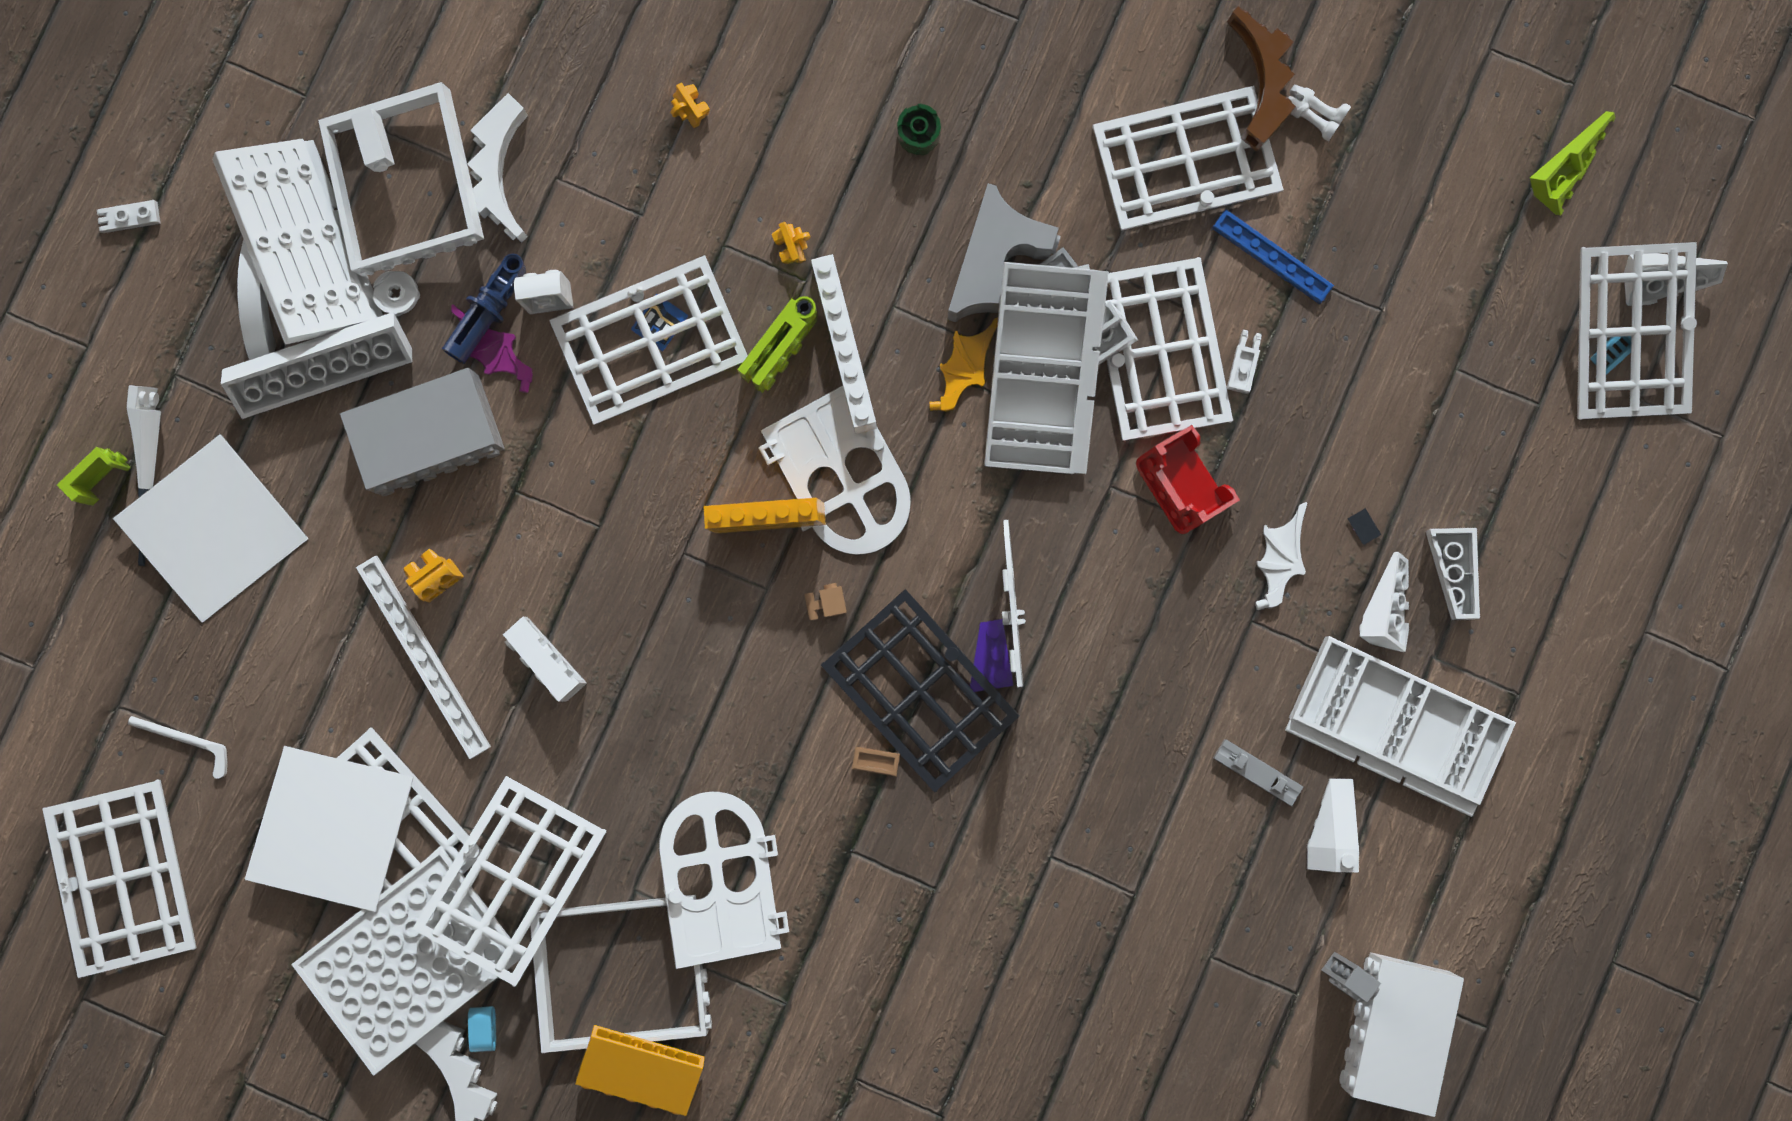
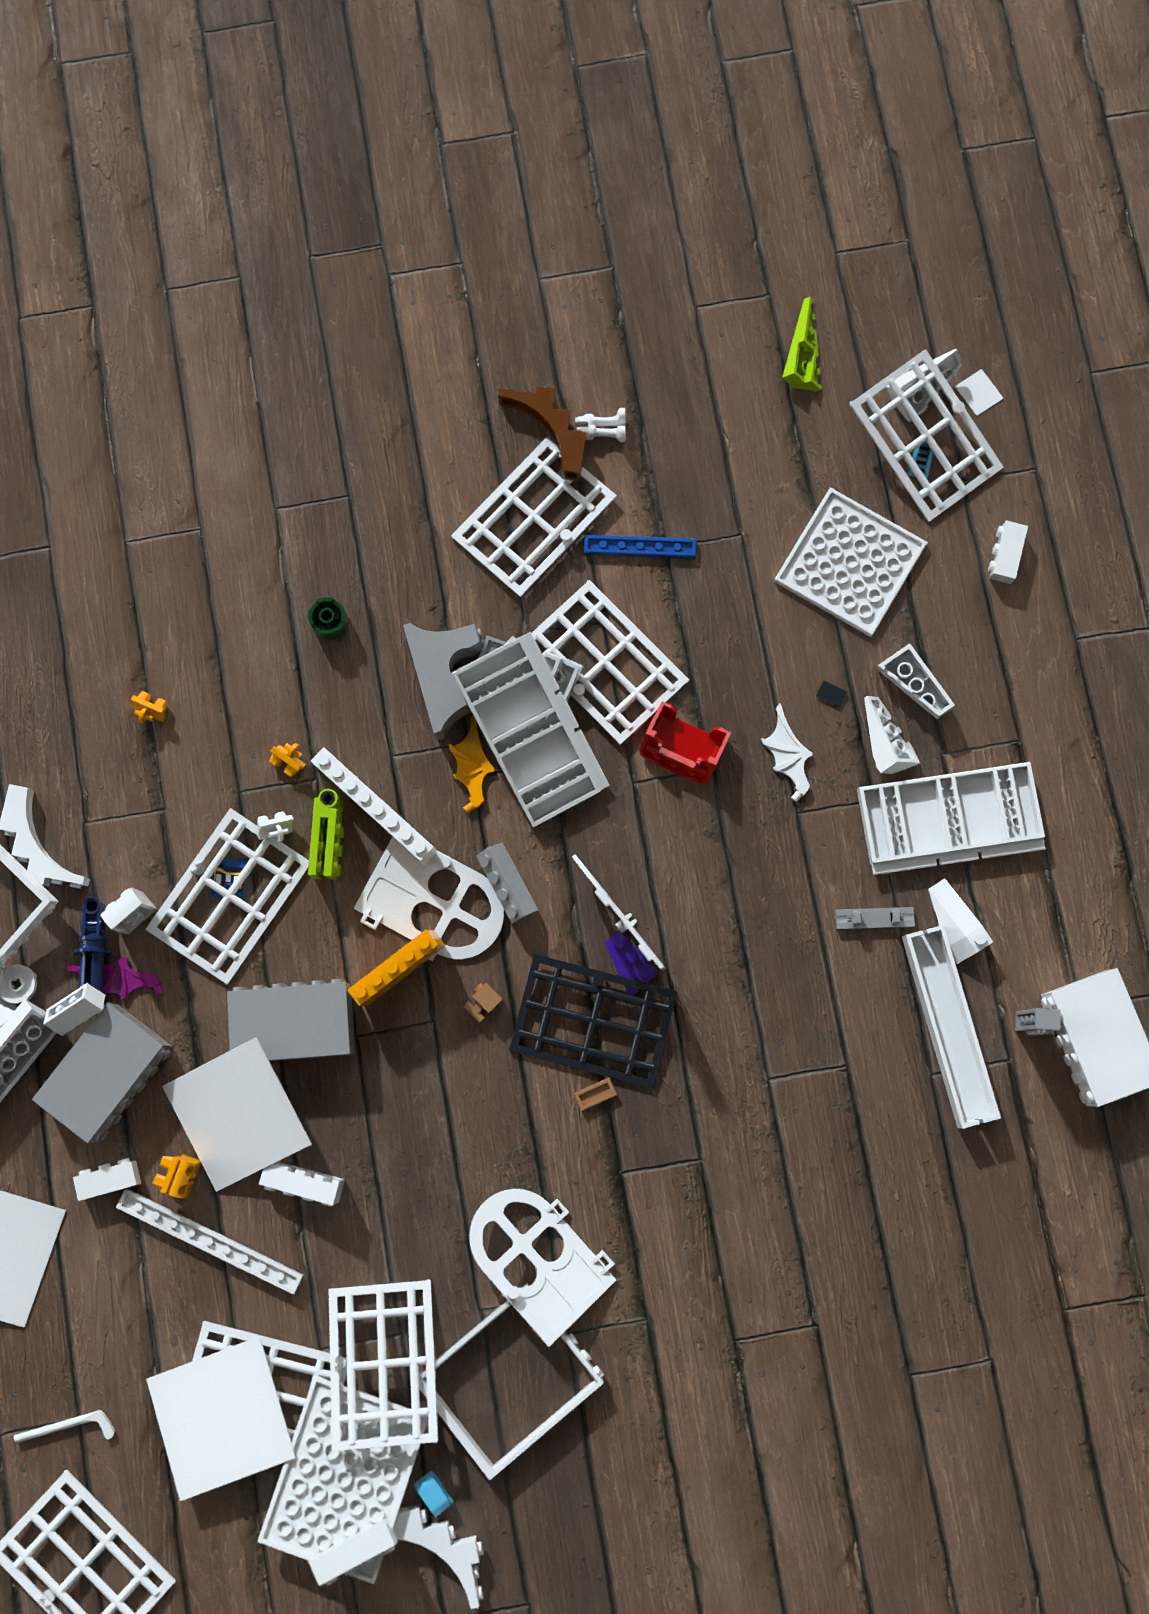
camera: 30 degrees left, 5 degrees down
(364, 535) = (106, 1179): none -> white brick
(373, 1033) = (353, 1551): none -> white brick
(433, 353) = (74, 1009): none -> white brick
(523, 555) = (236, 1114): none -> white piece
(630, 500) = (294, 1019): none -> light grey brick
(640, 1070) = (572, 1443): light orange brick -> none
(736, 303) = (275, 827): none -> white hips
(924, 503) = (507, 882): none -> light grey brick
(1244, 364) = (670, 634): white hinge -> none
(1261, 925) = (951, 1027): none -> white piece
(1472, 408) = (850, 562): none -> white tile
(1636, 500) = (1007, 552): none -> white brick
(1718, 321) = (979, 392): none -> white sticker

